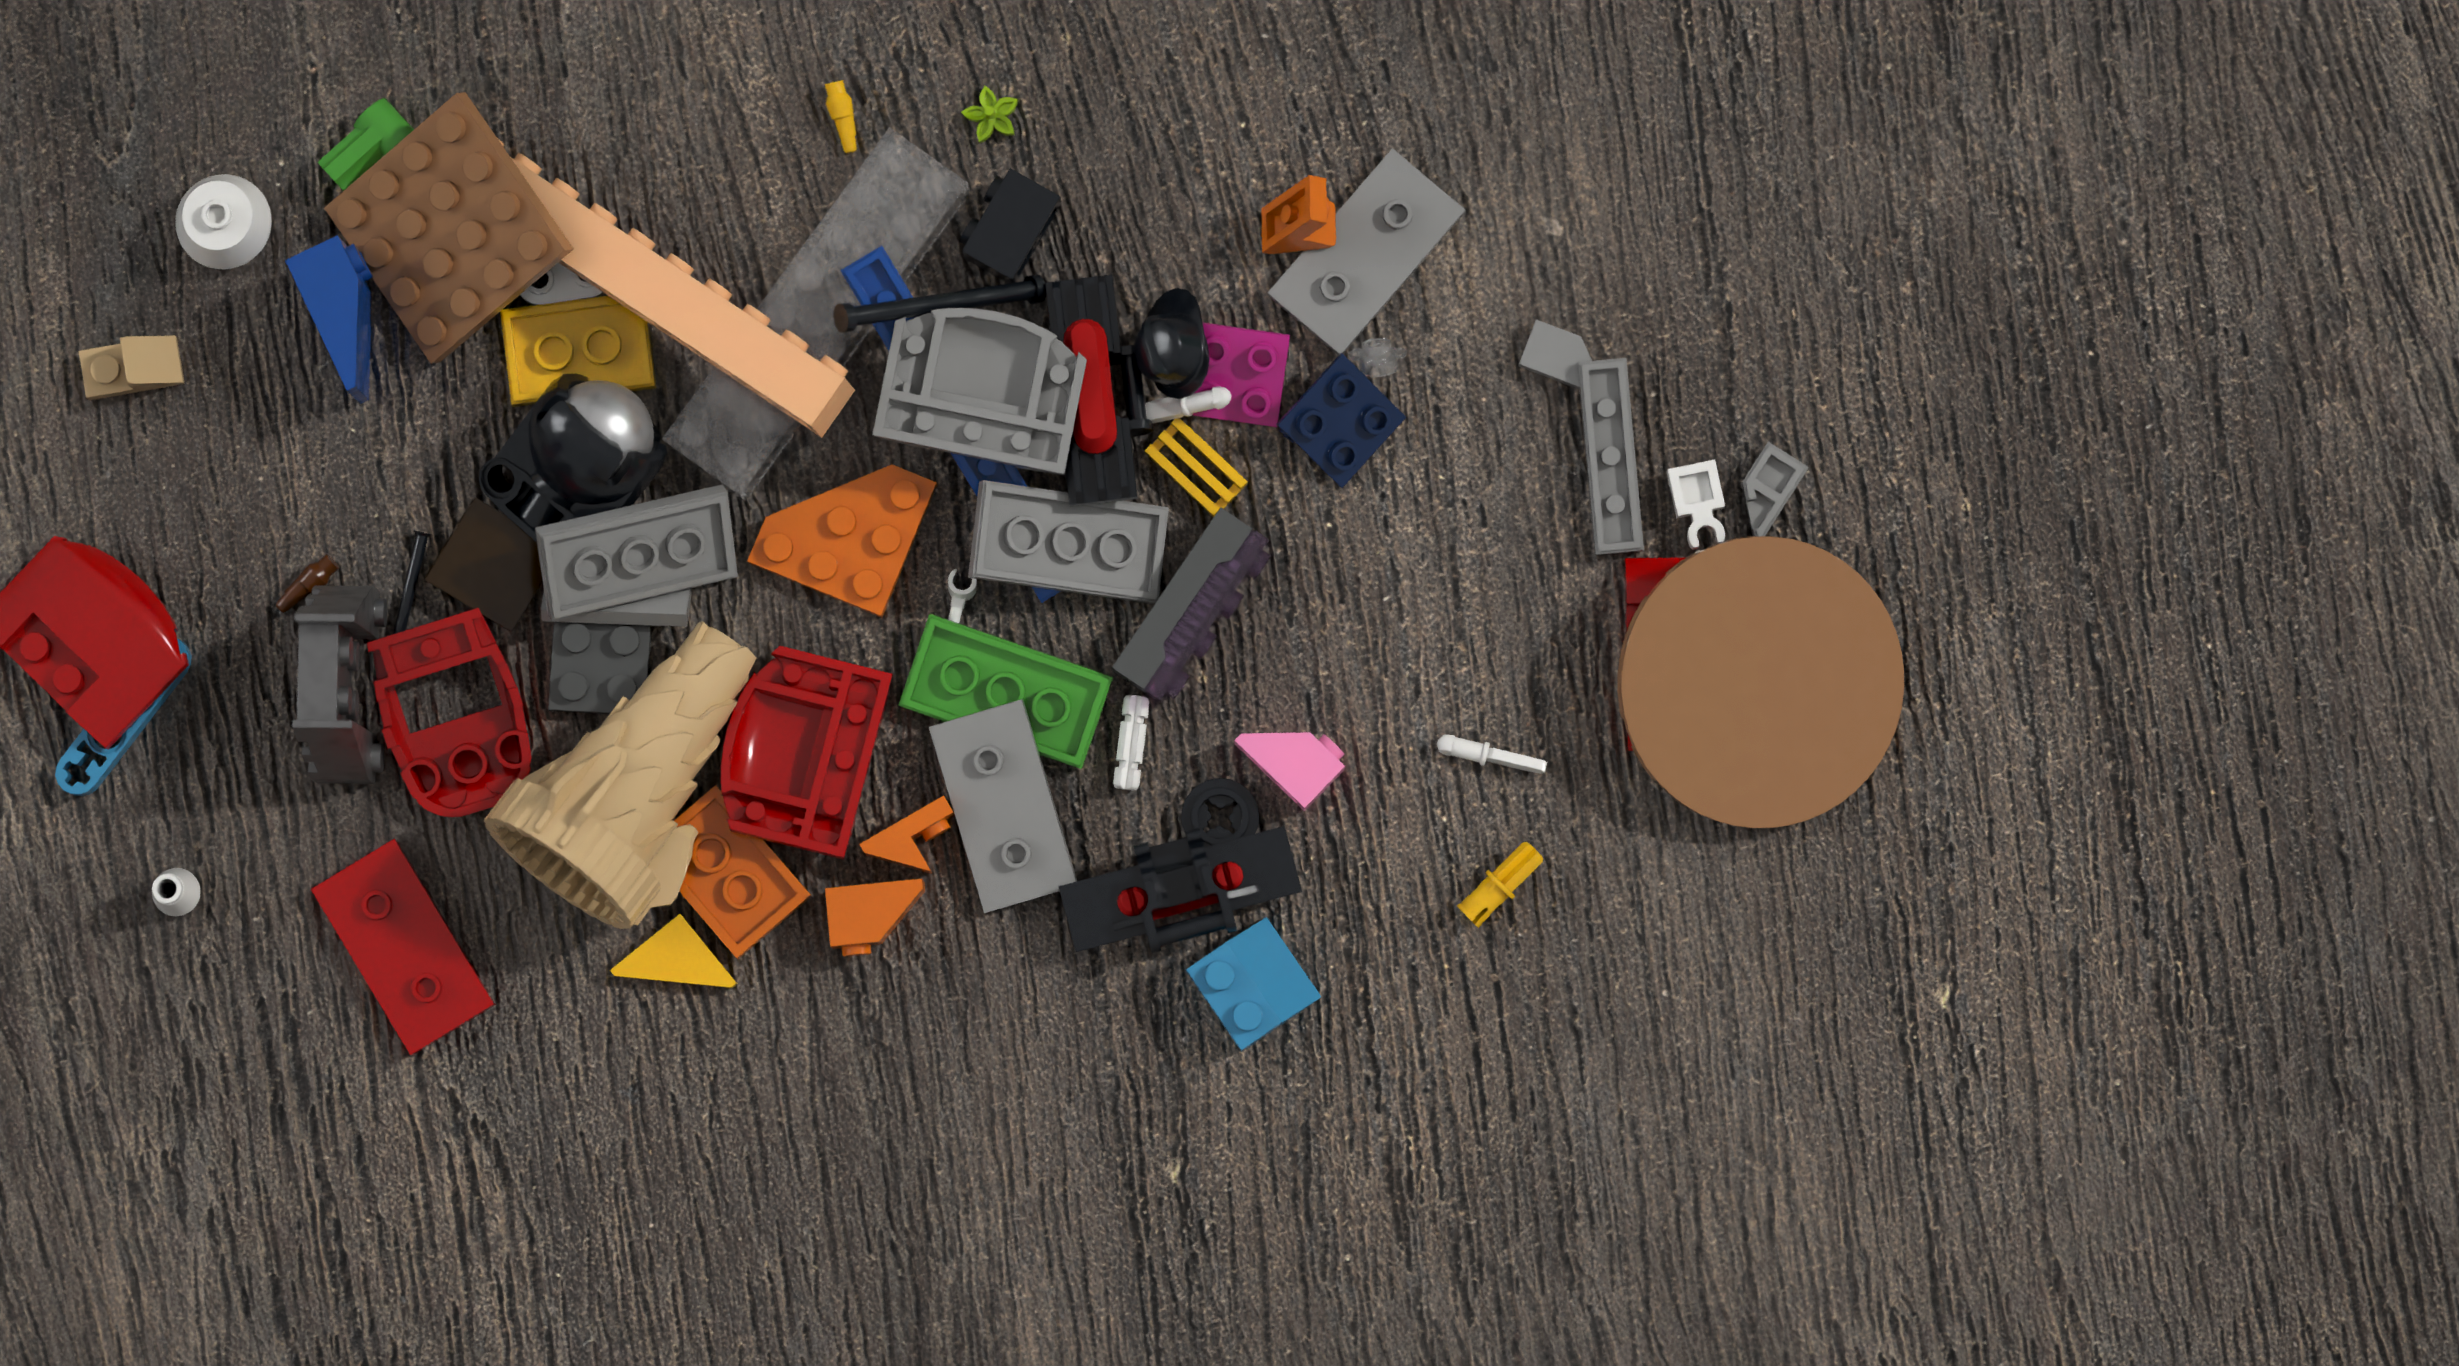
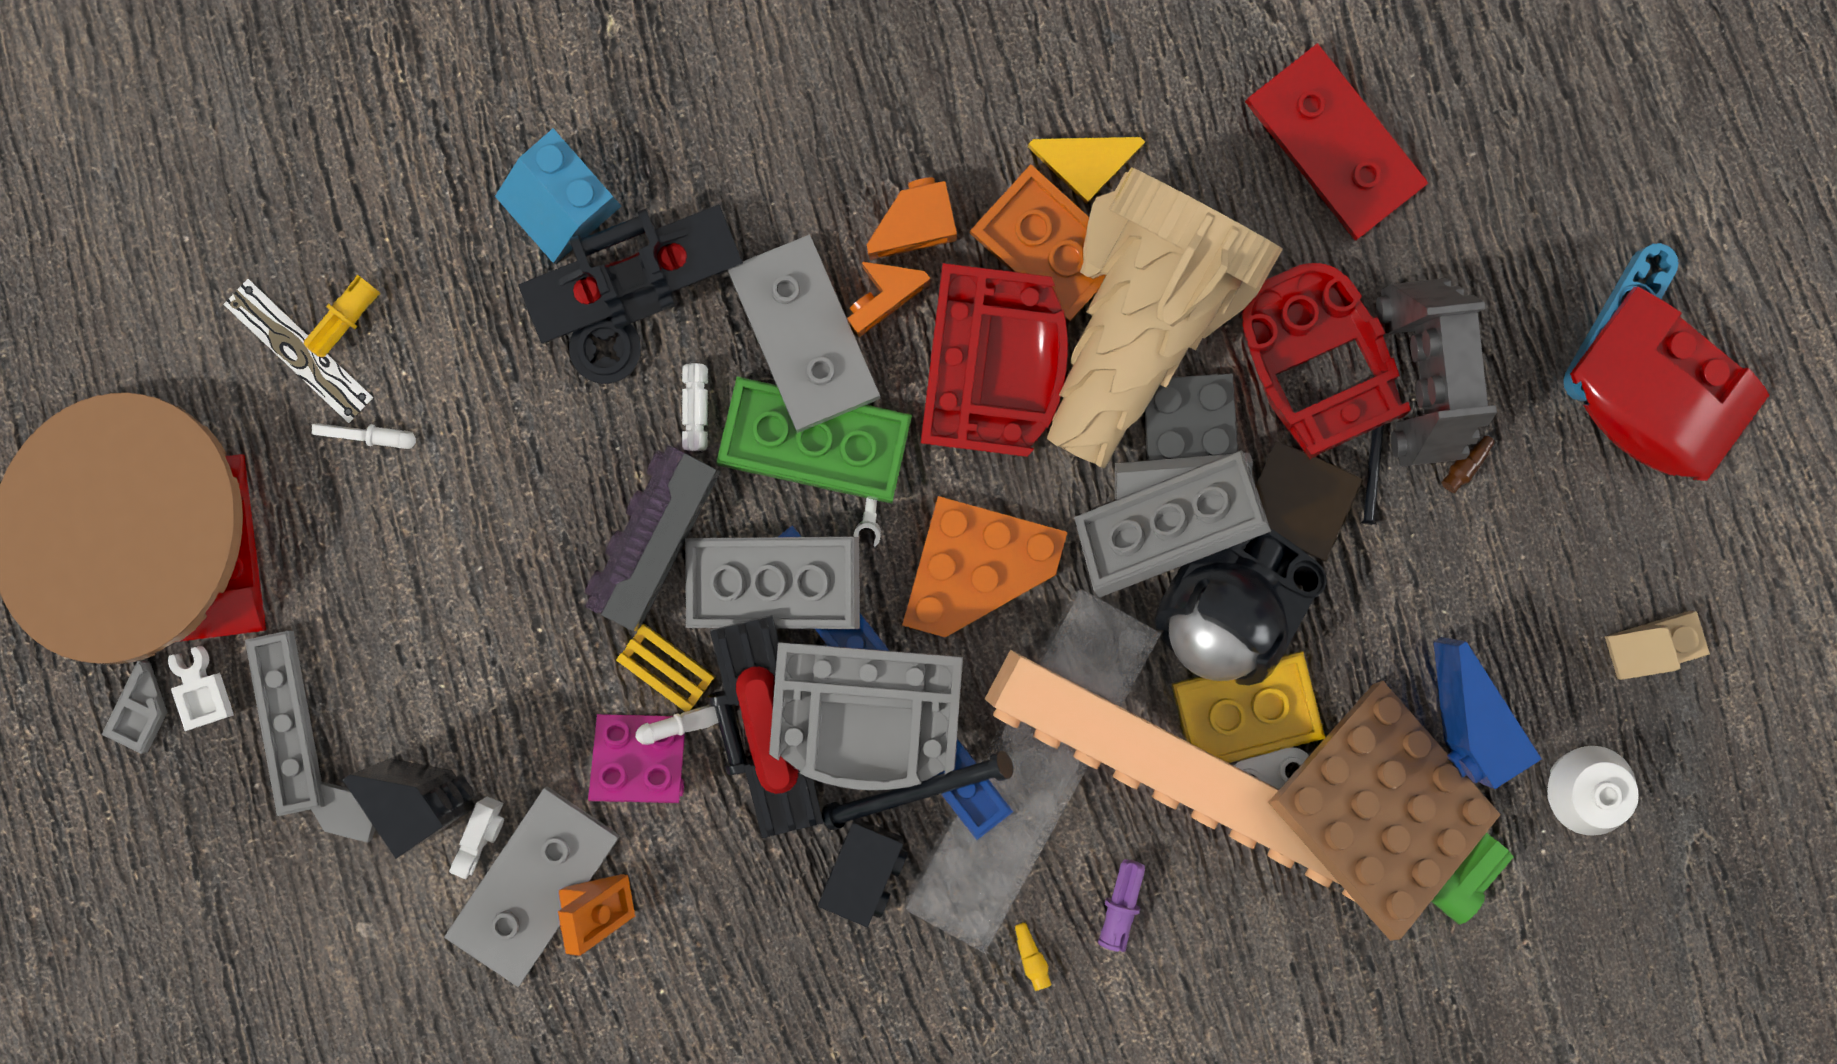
camera: 170 degrees right, 5 degrees up
(186, 894) = (1553, 165): white cone -> none
(739, 158) = (1122, 906): none -> medium lavender axle
(992, 114) = (893, 974): lime plant -> none
(1173, 345) = (695, 779): black piece -> none
(1294, 762) = (539, 404): bright pink slope -> none
(1341, 420) = (536, 727): dark blue hinge -> none
(1377, 357) = (508, 789): clear plate -> none
(1408, 320) = (481, 828): none -> white plate
(1467, 354) = (409, 801): none -> black slope
(1560, 859) = (287, 342): none -> sticker

